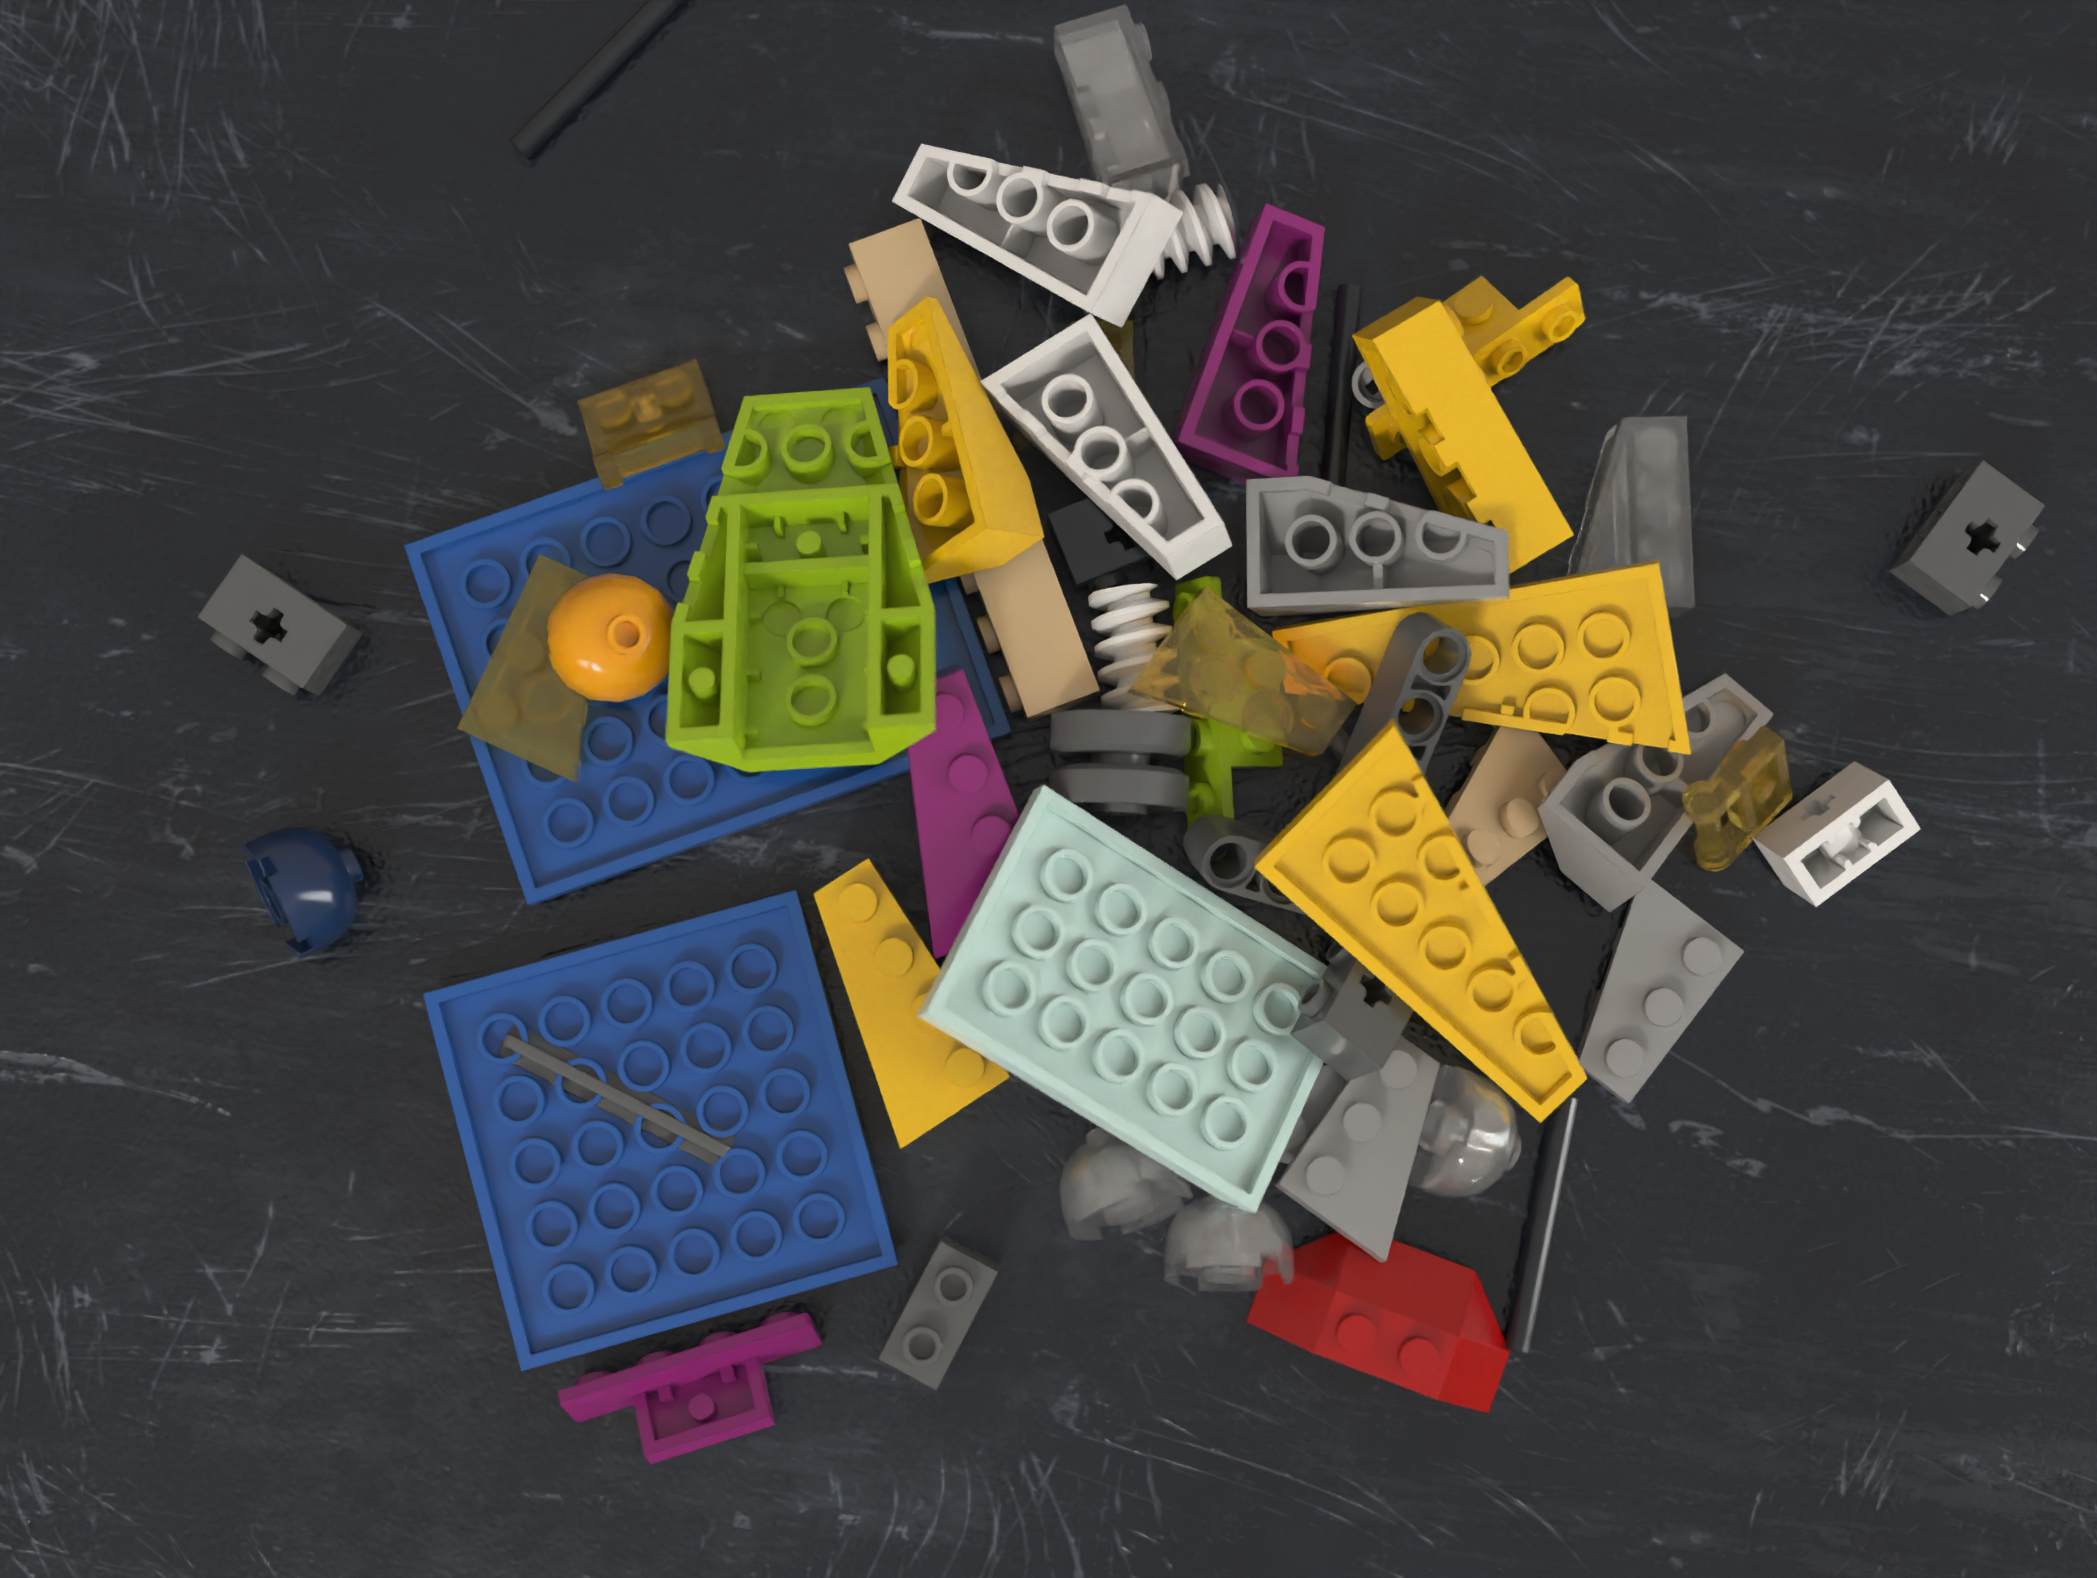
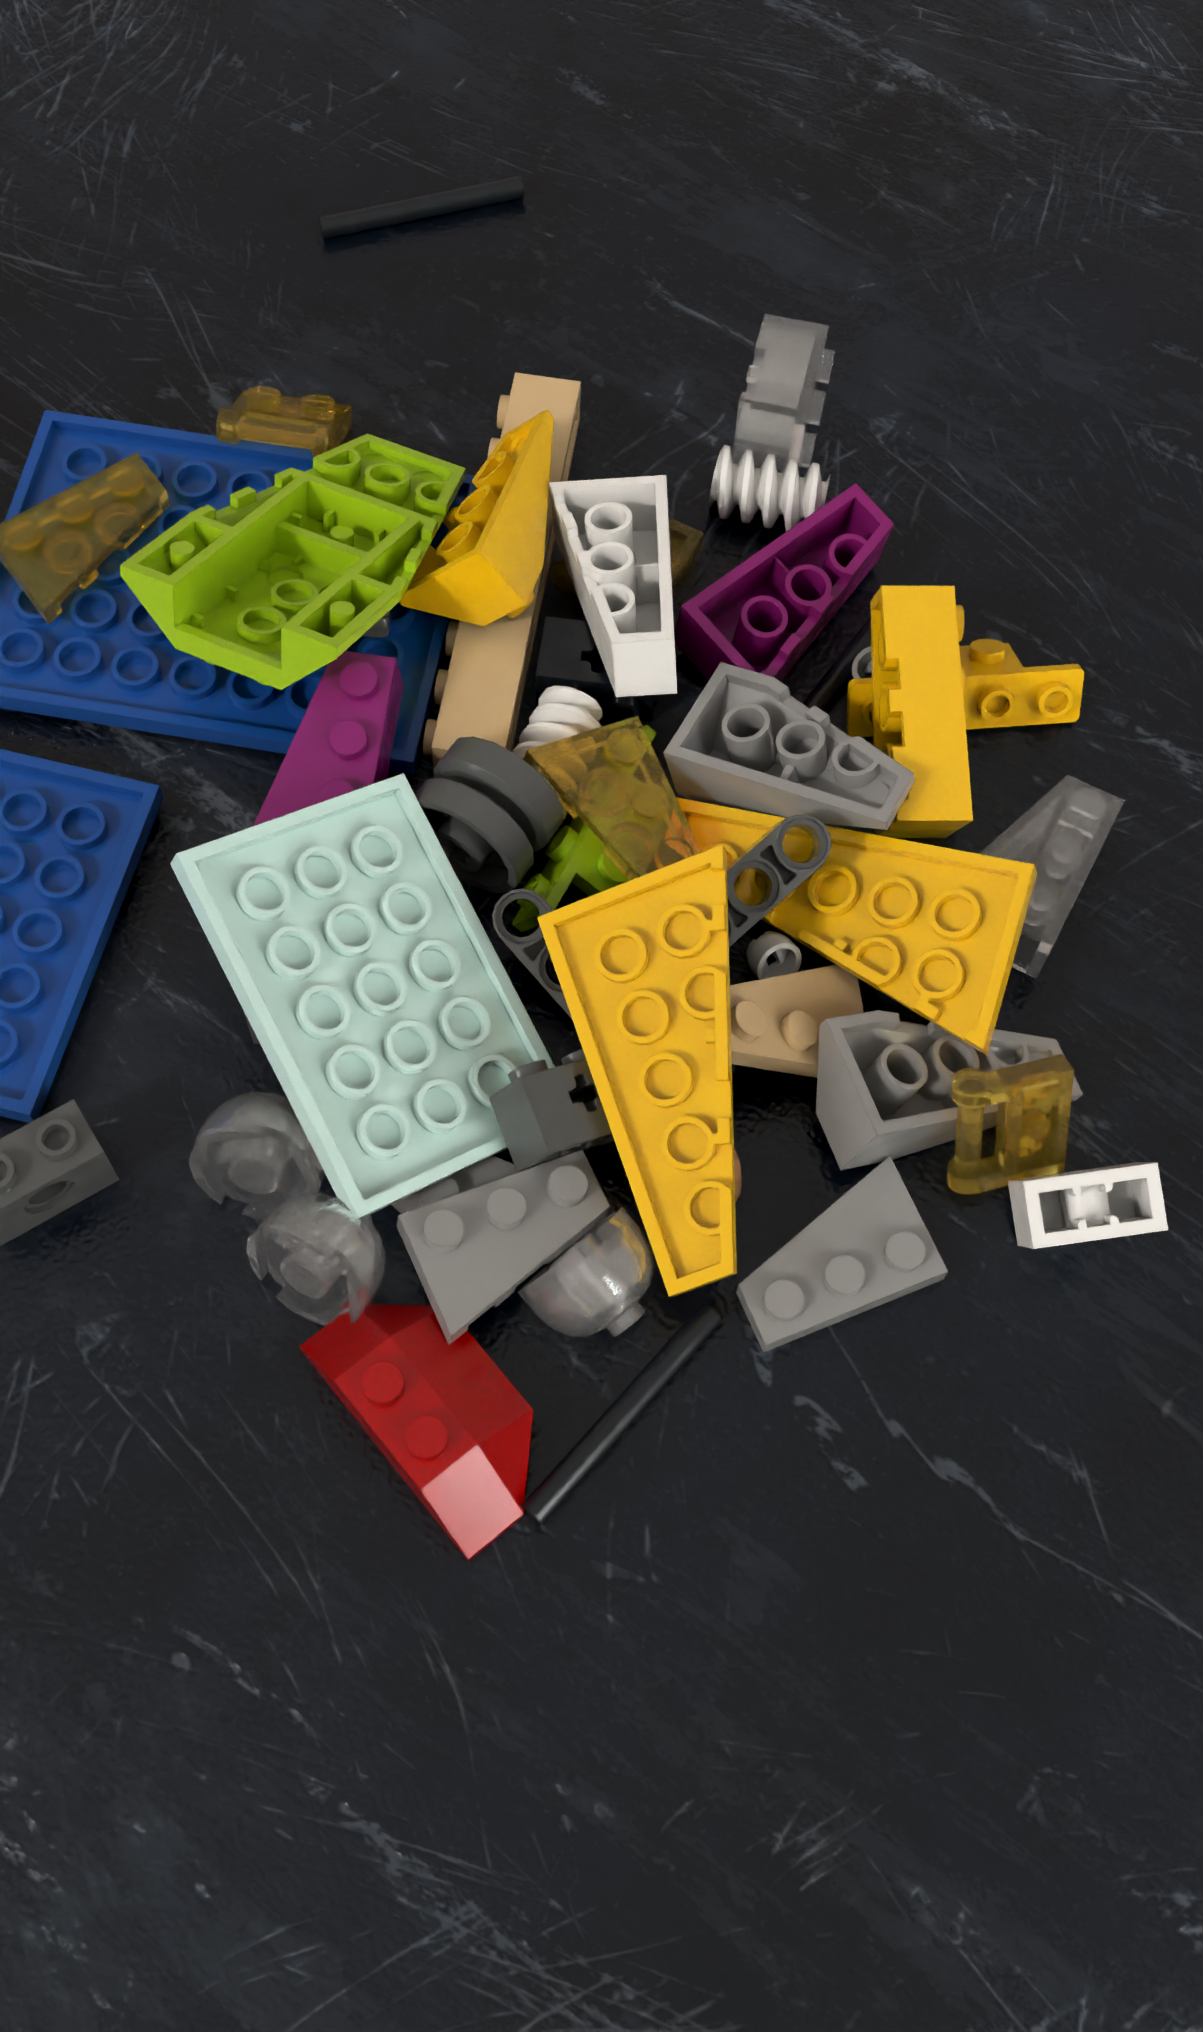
camera: 30 degrees right, 20 degrees down
(611, 637) = (135, 509): light orange cylinder -> none
(887, 978) = (161, 964): yellow wedge -> none
(1057, 230) = (673, 417): white wedge -> none
(1450, 743) = (781, 947): none -> white hinge

